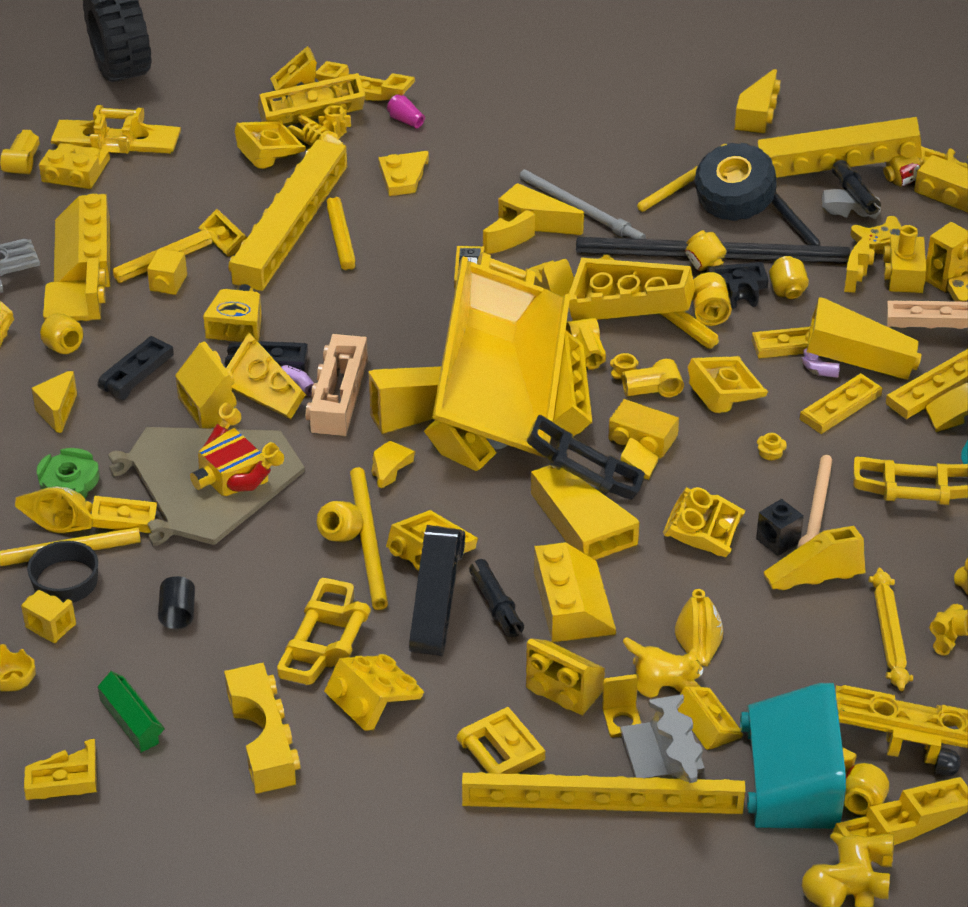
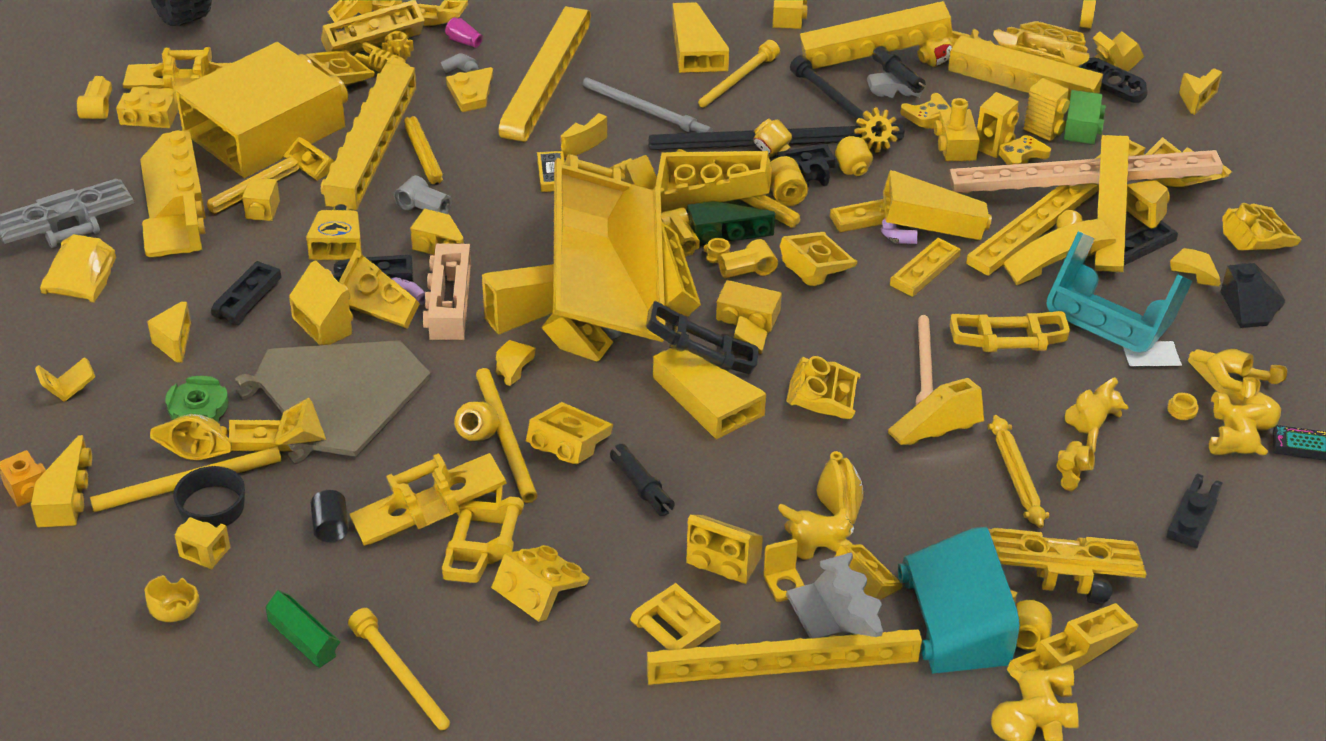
camera: 10 degrees left, 0 degrees up
(61, 333) = (167, 267): yellow head -> none
(62, 774) = (245, 698): yellow wing -> none
(162, 508) = (299, 425): none -> yellow slope
(182, 174) = (260, 107): none -> yellow brick
(192, 714) = (365, 625): none -> yellow piece
(231, 461) = (360, 373): torso -> none
(269, 756) = (452, 658): yellow arch -> none
(277, 602) = (428, 506): none -> yellow piece
(326, 280) = (417, 193): none -> light grey piece
(334, 318) = (434, 229): none -> yellow slope
(397, 142) = (460, 61): none -> light grey arm
(435, 589) = (586, 477): black beam -> none
(481, 162) = (544, 74): none -> yellow beam
(549, 213) = (621, 116): yellow slope -> none
(571, 593) = (712, 468): yellow slope -> none
(641, 337) = (729, 221): none -> dark green slope
(649, 139) = (697, 41): none -> yellow slope
(735, 181) = (788, 72): black wheel -> none
(771, 446) = (870, 312): yellow plate -> none
(779, 527) = (896, 386): black brick -> none
(825, 258) = (885, 124): none -> yellow gear
(857, 264) = (914, 139): yellow slope -> none

